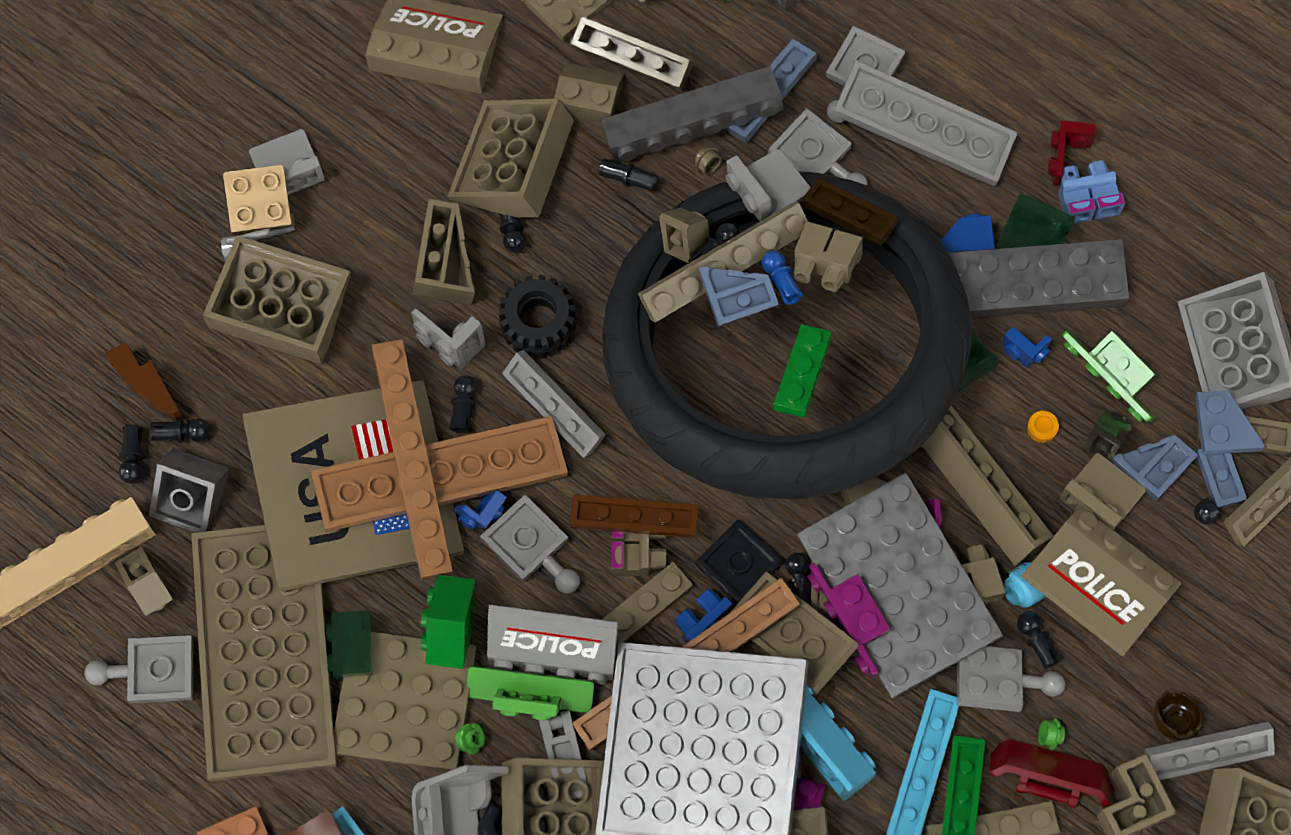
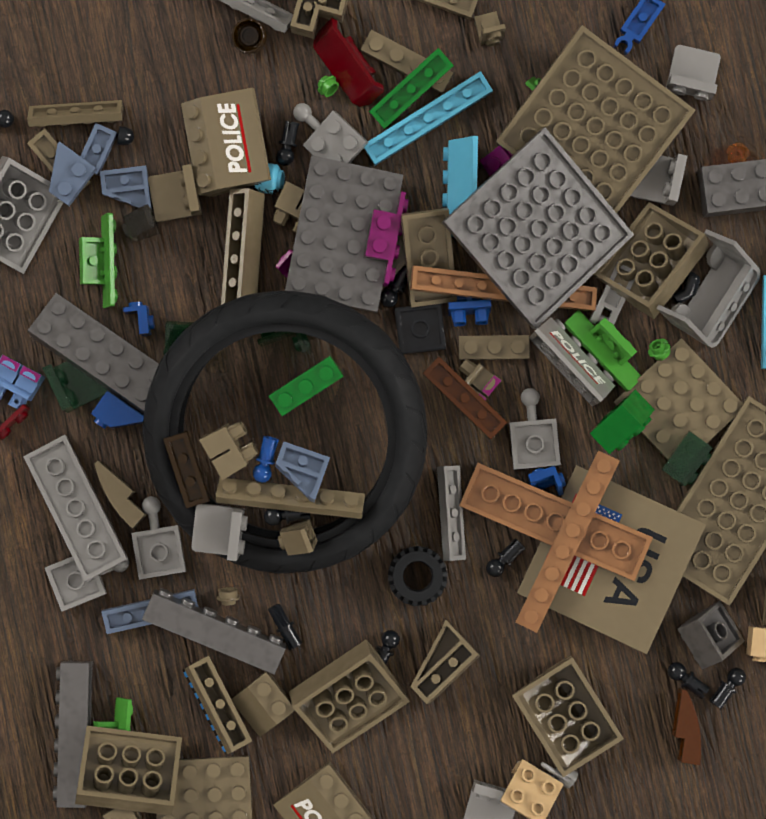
camera: 145 degrees left, 15 degrees up
(457, 350) = (475, 594): light grey bracket -> none
(896, 169) = (119, 495): none -> dark tan slope
(1042, 426) = (172, 264): light orange tile -> none

